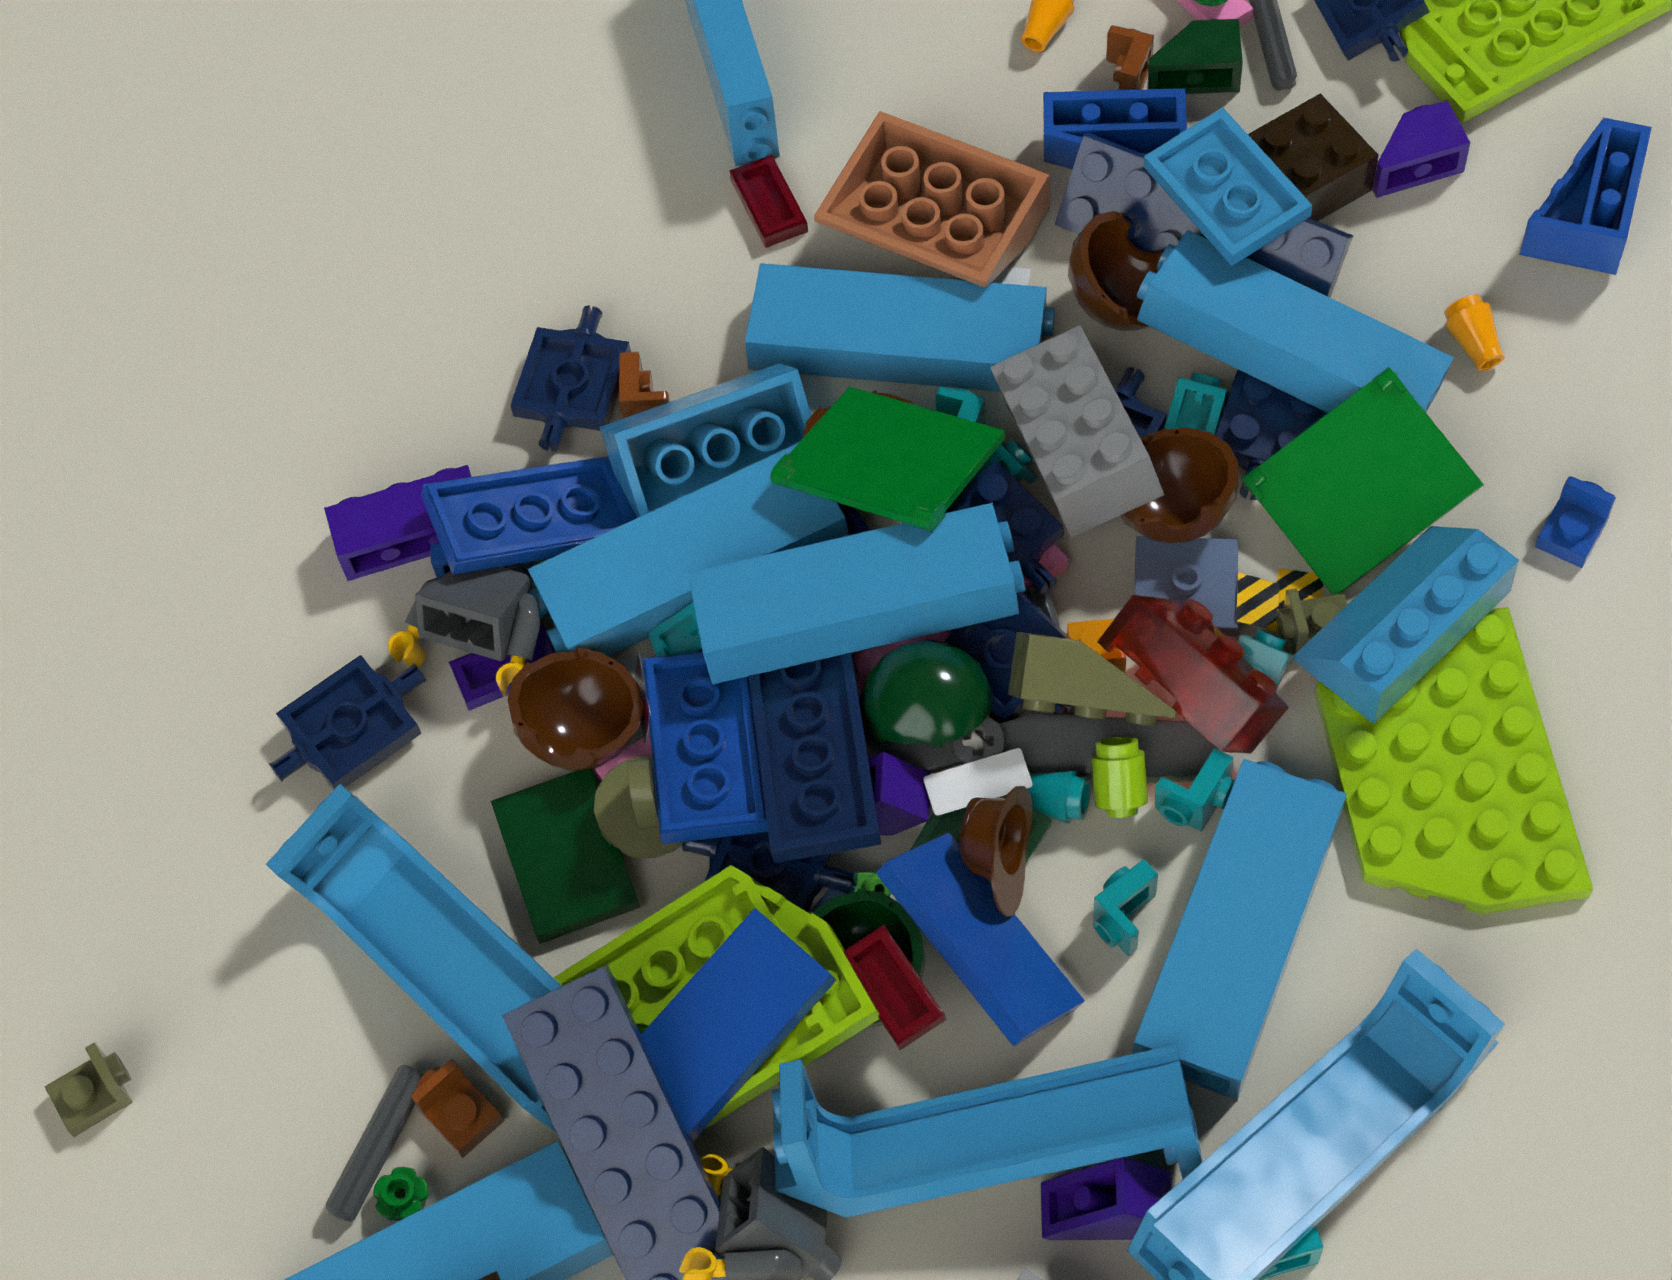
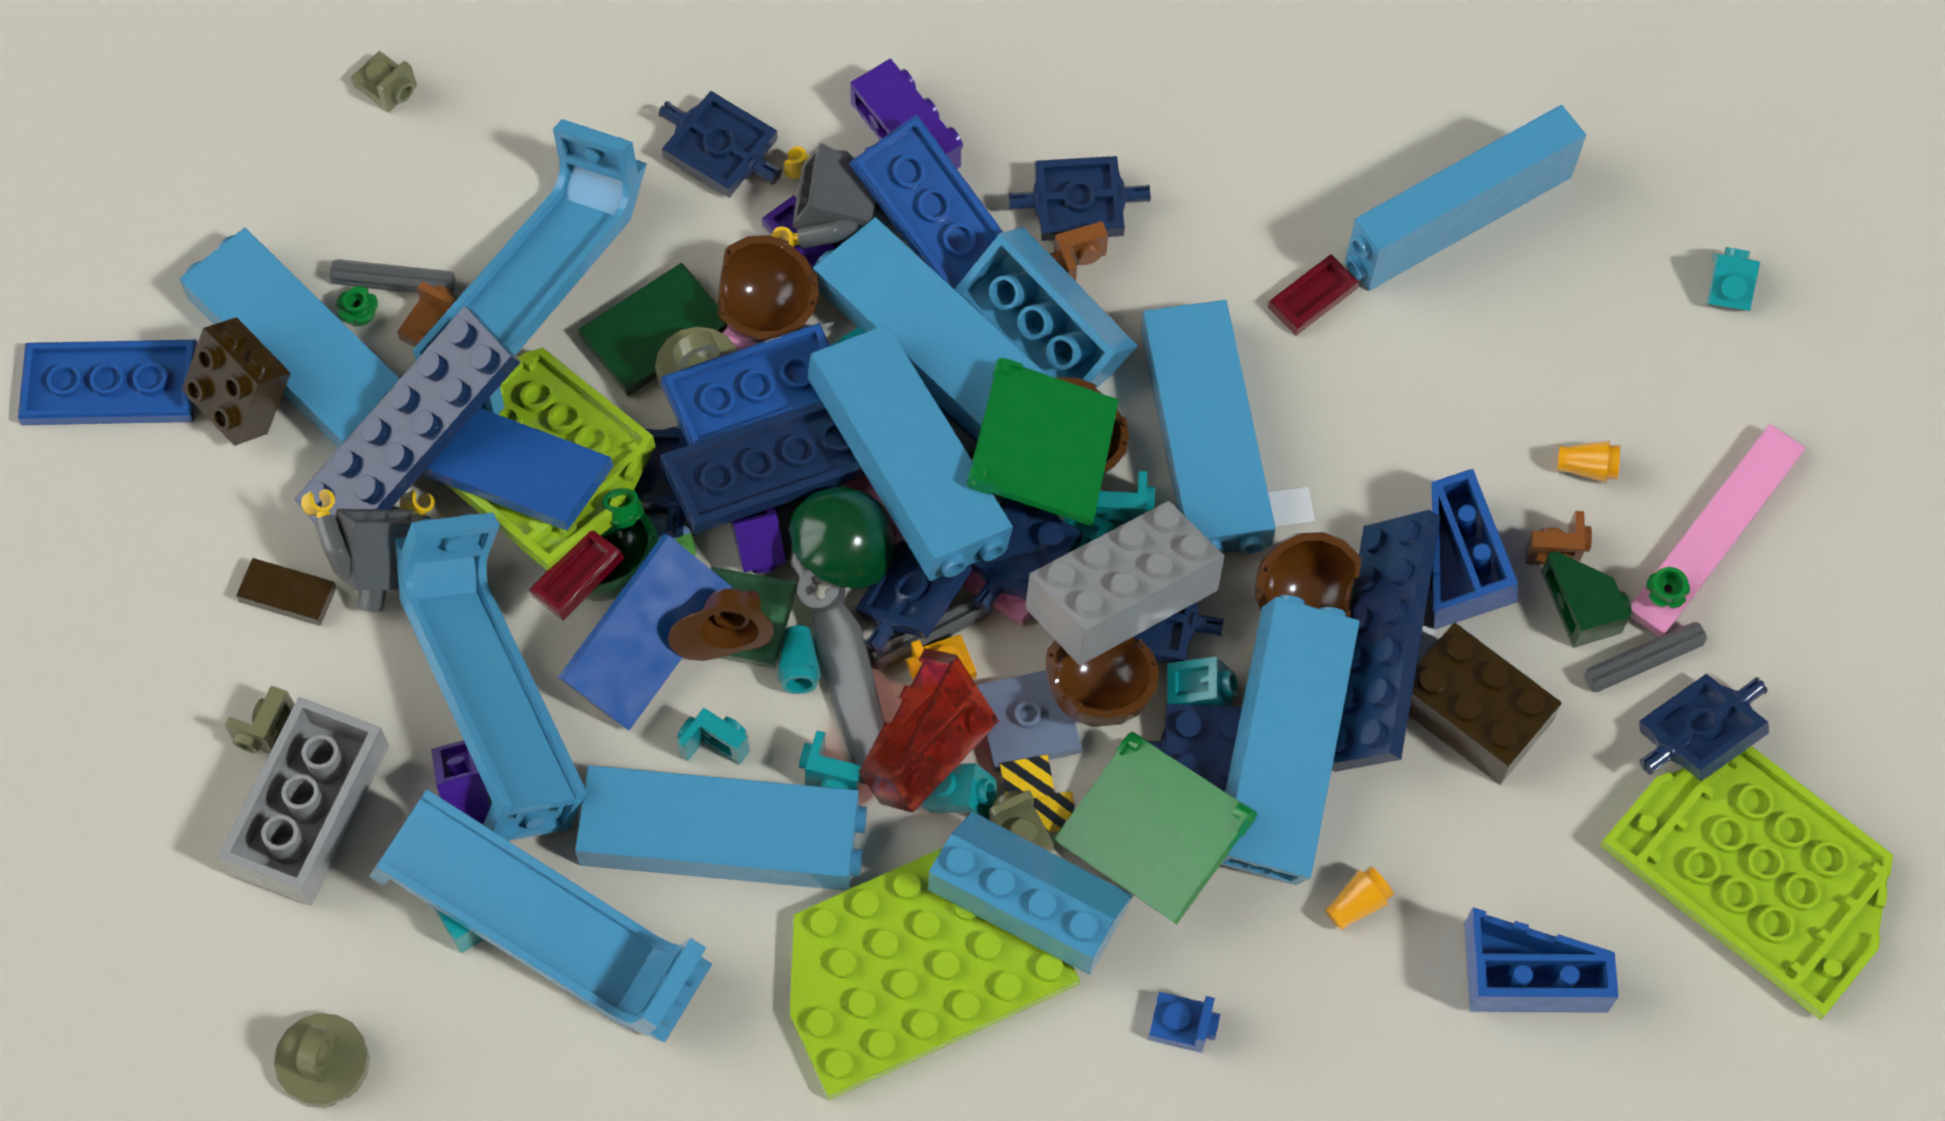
camera: 65 degrees right, 5 degrees up
(825, 907) = (628, 514): none -> green plate
(936, 200) = (1332, 418): nougat slope -> none
(981, 778) = (784, 598): white sticker -> none
(1071, 673) = (883, 639): olive slope -> none
(1119, 776) = (823, 703): lime brick -> none
(1227, 186) = (1401, 635): dark azure plate -> none
(1422, 149) = (1546, 809): dark purple slope -> none

